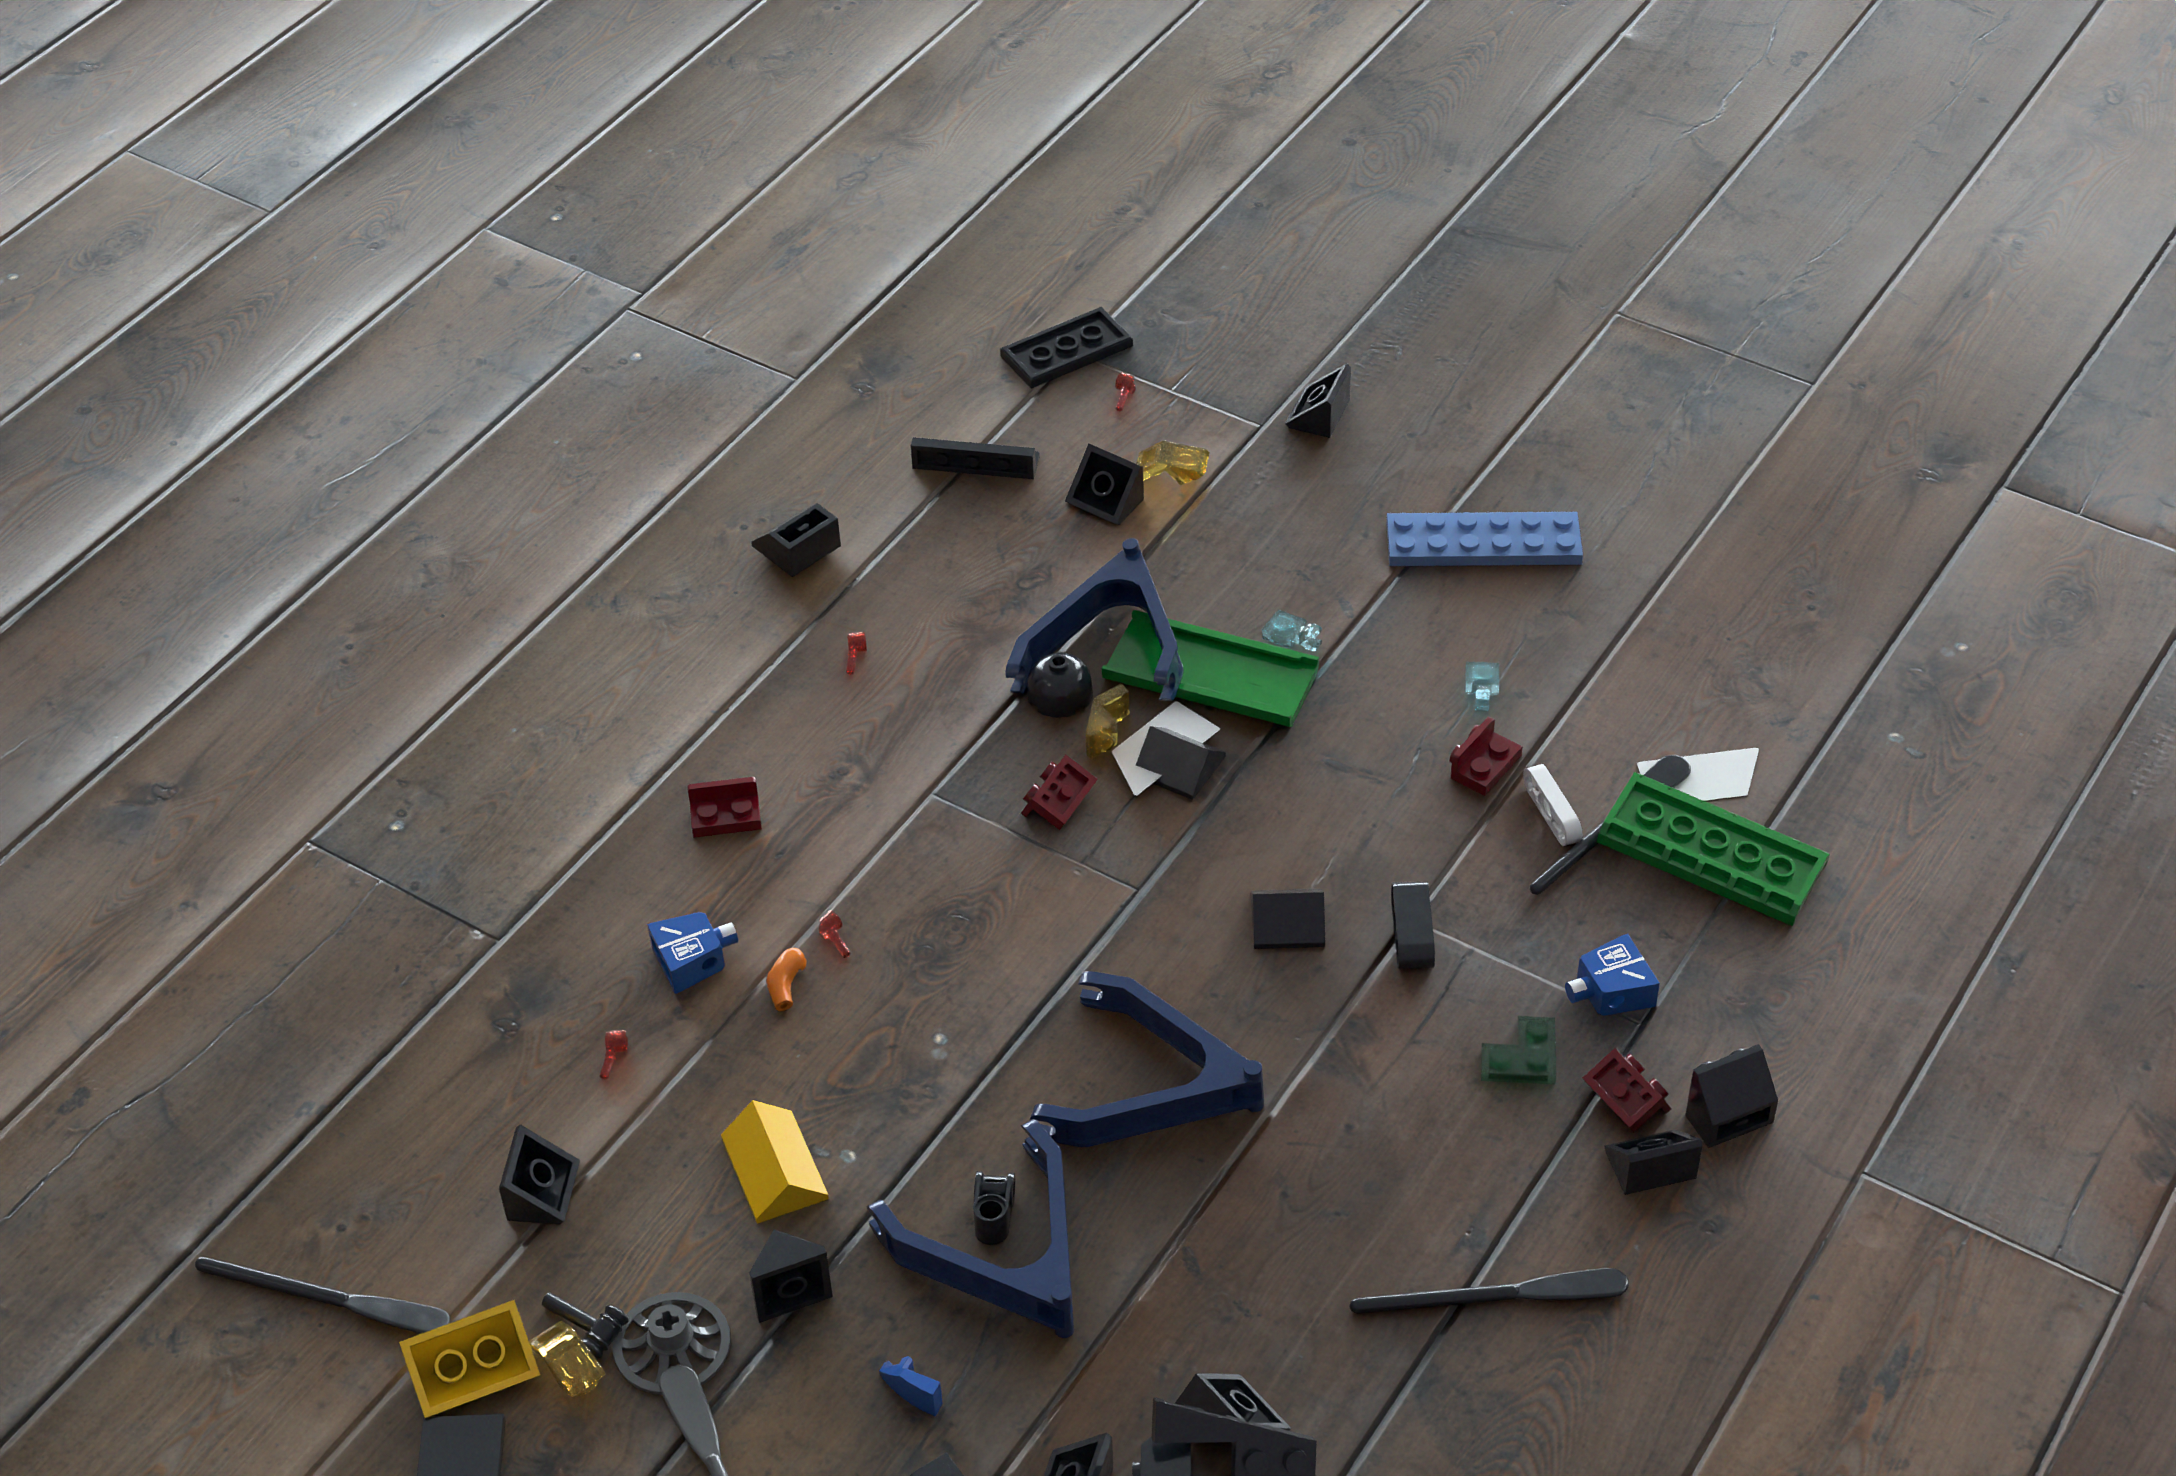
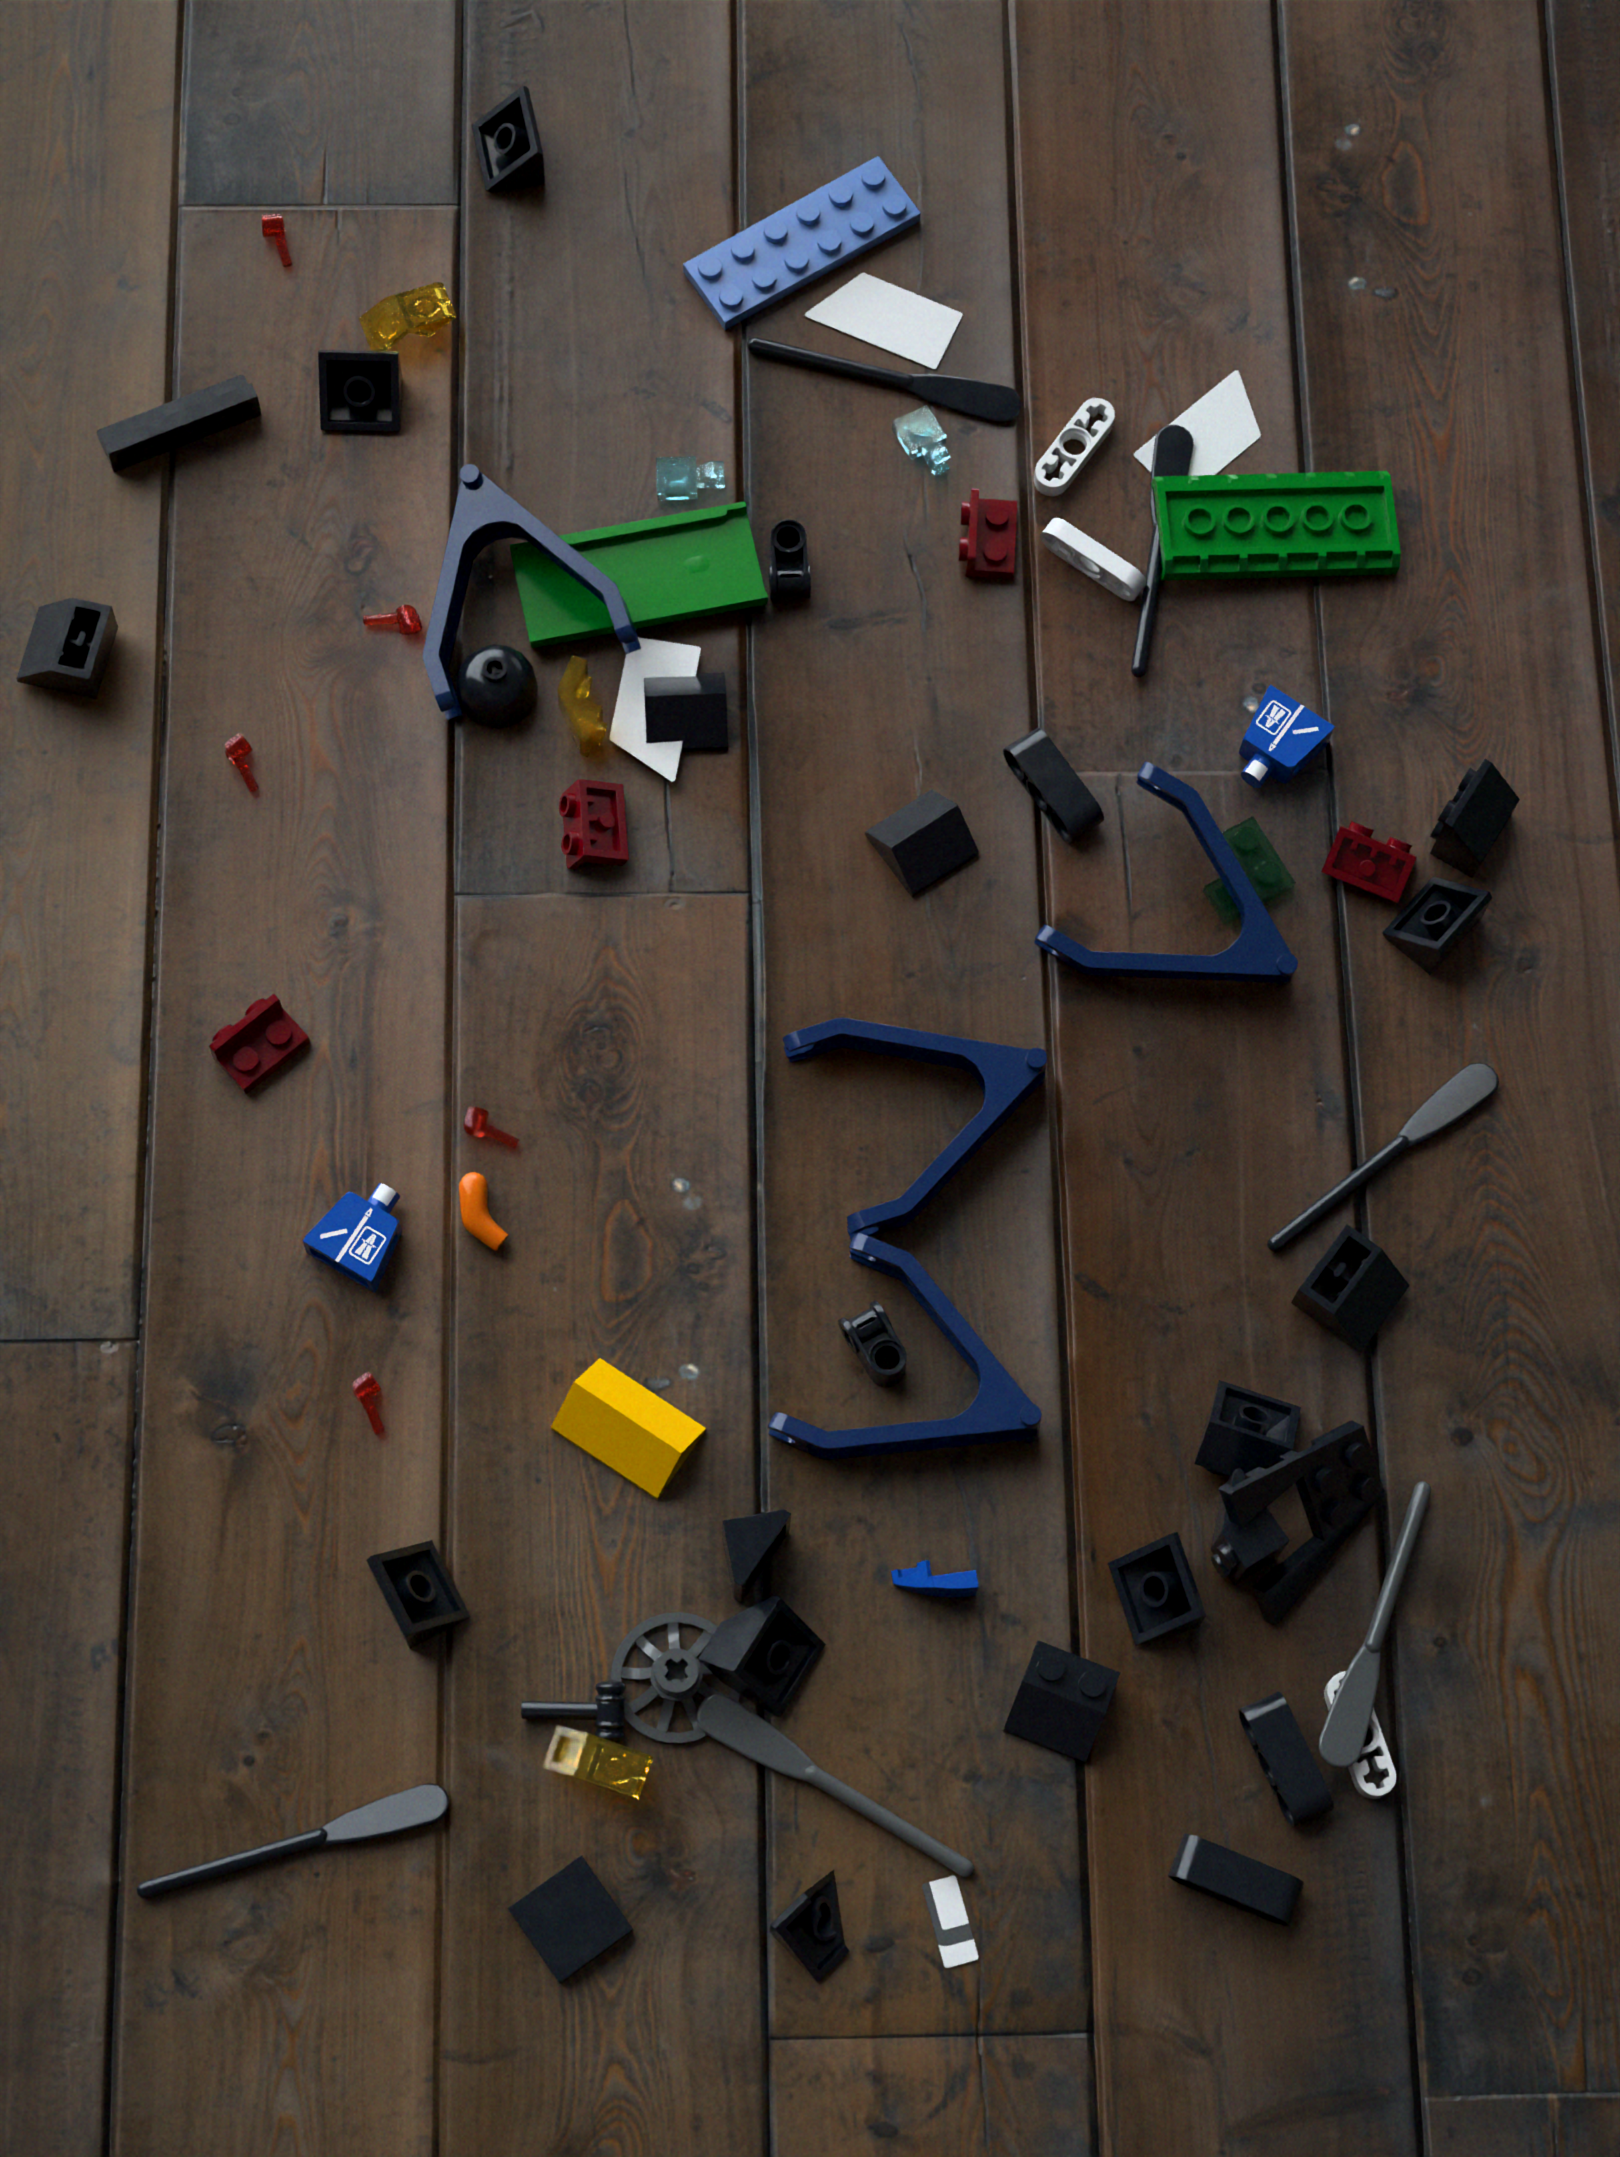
camera: 40 degrees left, 25 degrees up
(469, 1358) = (513, 1828): yellow slope -> none
(743, 1354) = (763, 1653): none -> black slope
(1026, 621) = (405, 616): none -> clear red hand
(1066, 347) = (165, 206): black tile -> none
(1322, 705) = (789, 567): none -> black piece
(1390, 1358) = (1351, 1289): none -> black slope
(1477, 1097) = (1254, 957): none -> dark blue piece
(1514, 609) = (890, 318): none -> white sticker
(1530, 670) = (960, 394): none -> black piece
(1570, 743) = (1074, 430): none -> white beam

